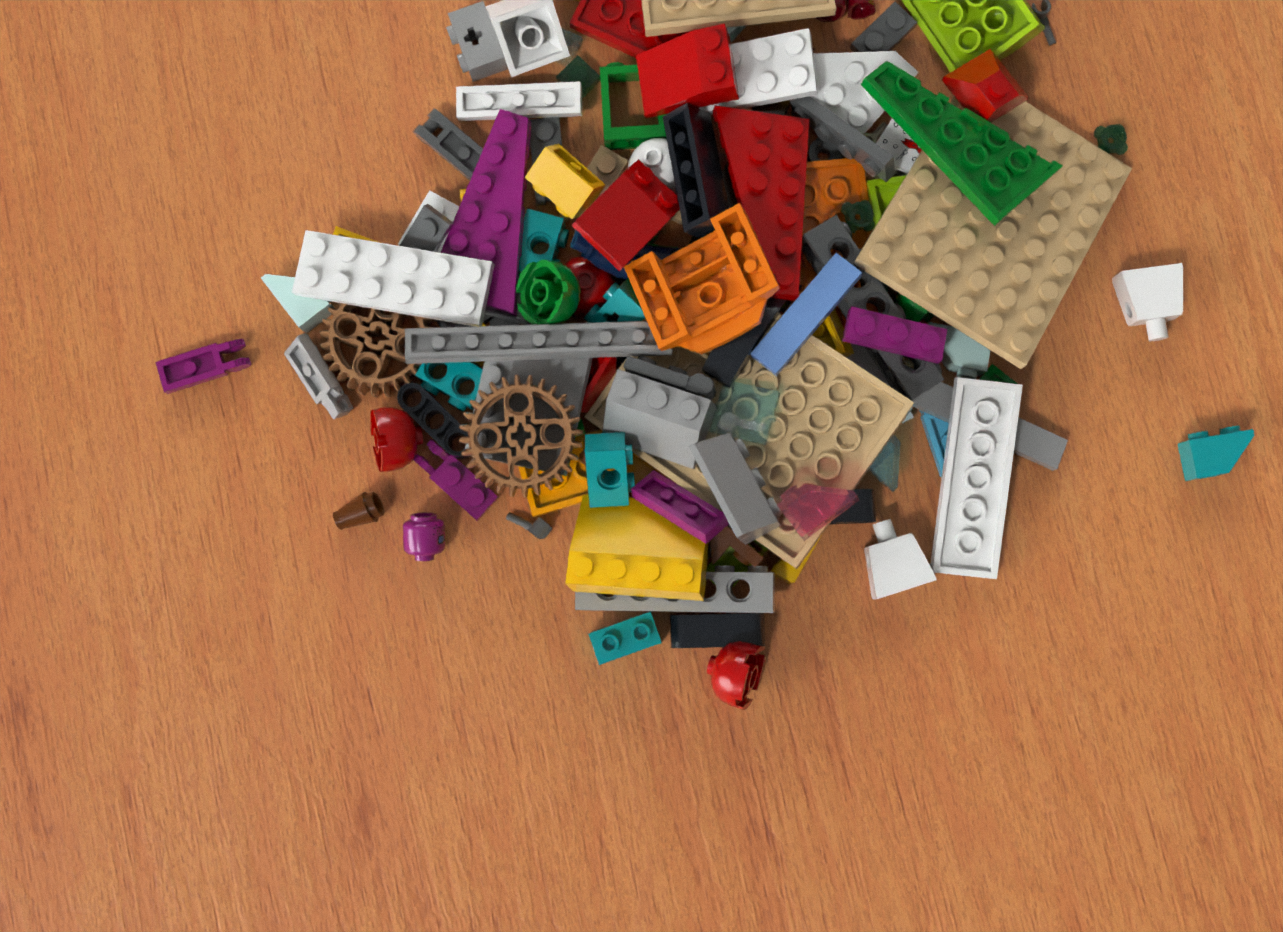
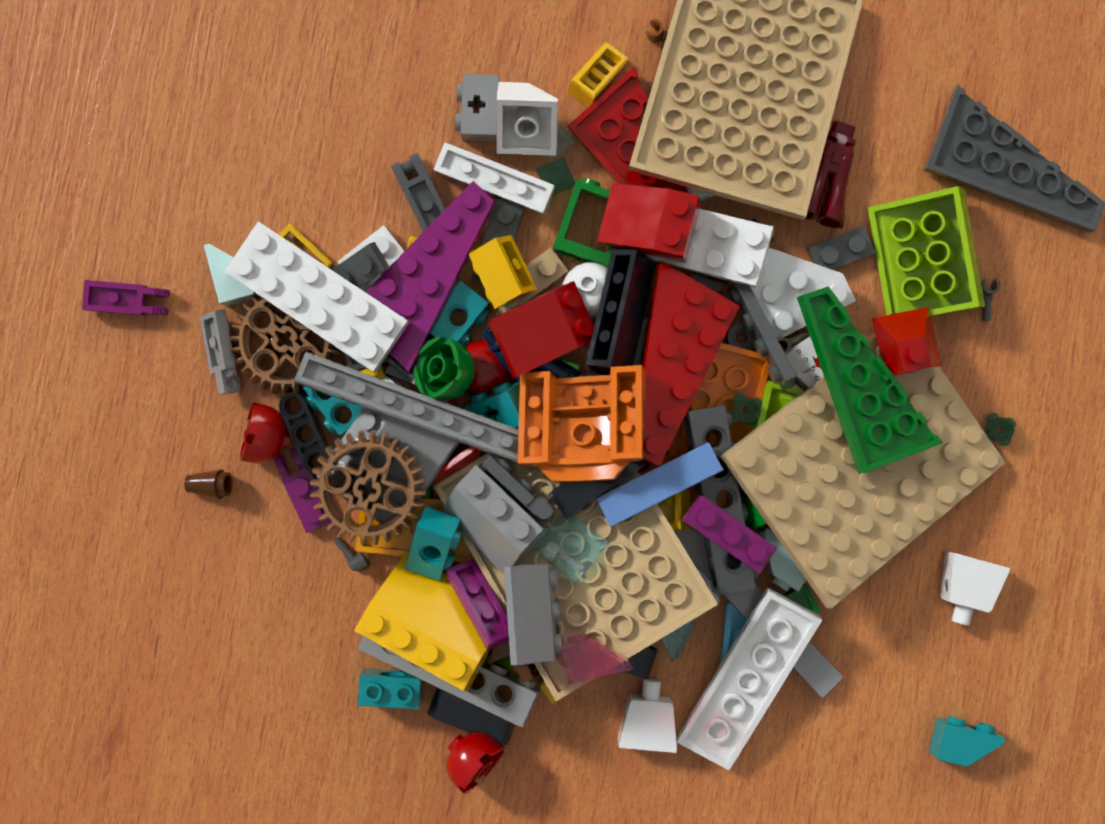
camera: 20 degrees right, 5 degrees up
(424, 536) = (255, 529): magenta head -> none

